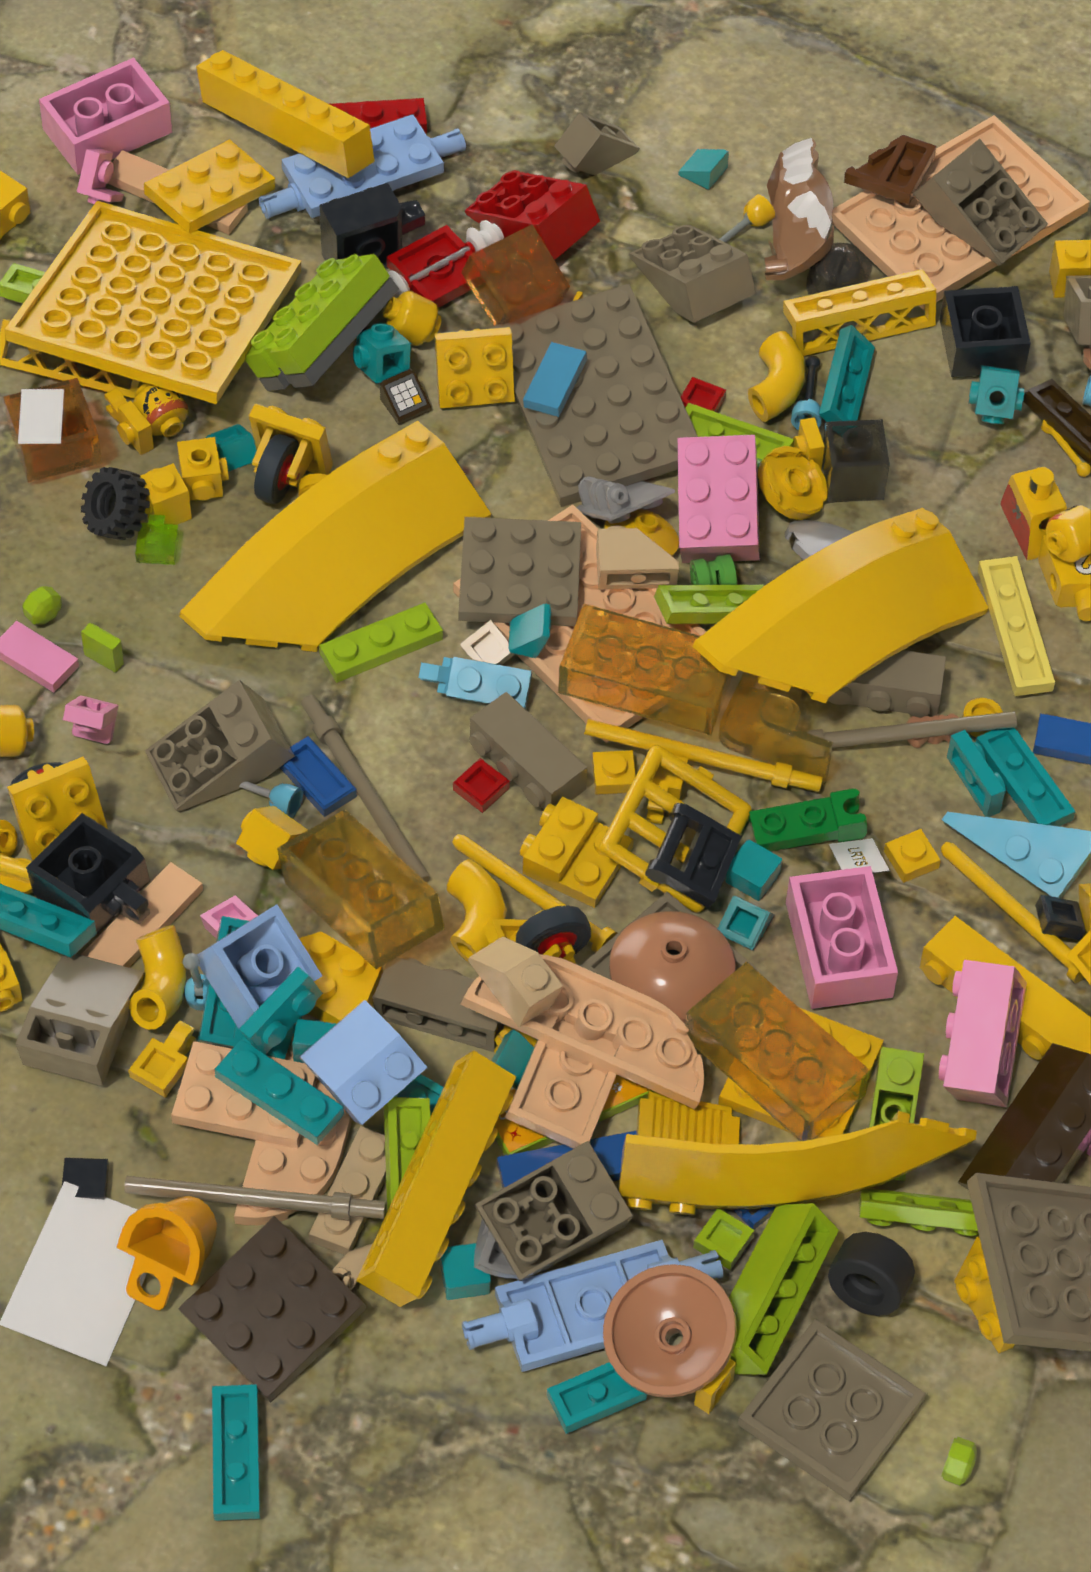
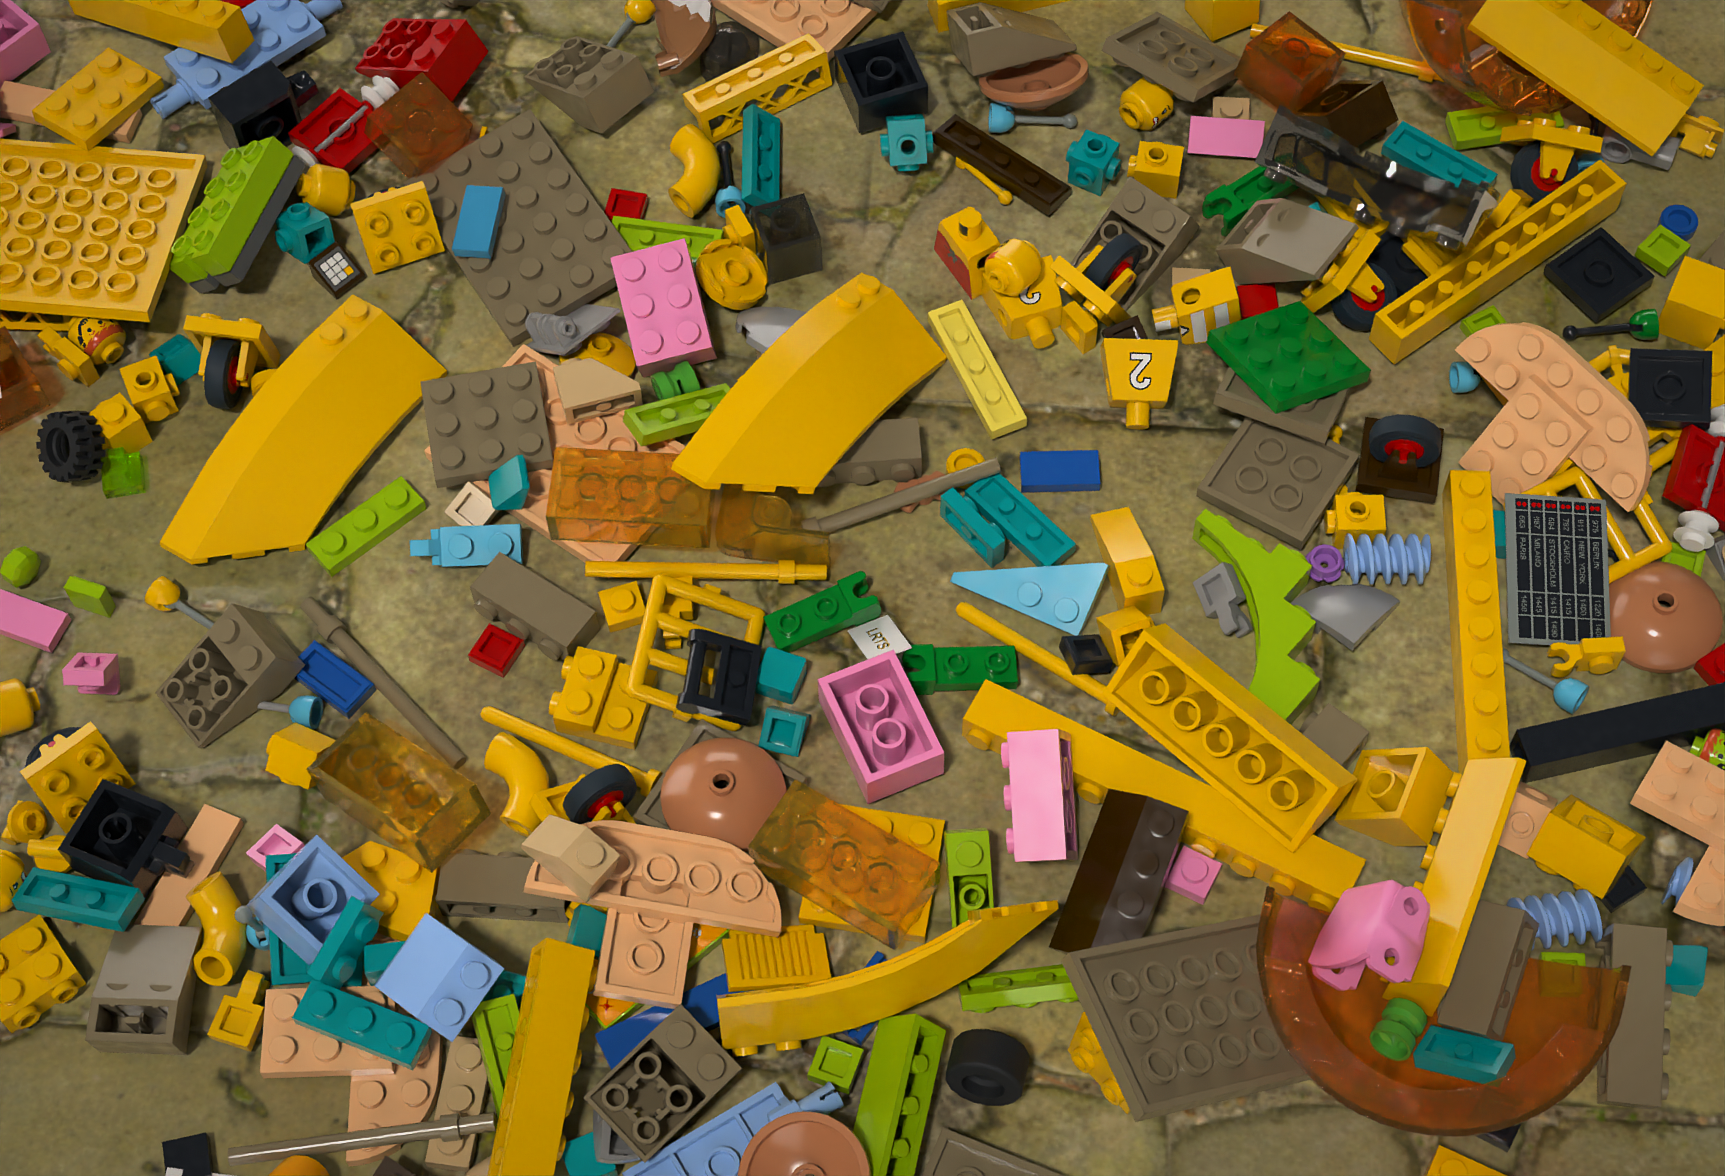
camera: 10 degrees left, 5 degrees up
(174, 663) = (165, 596): none -> yellow hinge
(912, 855) = (929, 623): yellow plate -> none
(930, 901) = (959, 667): none -> green plate

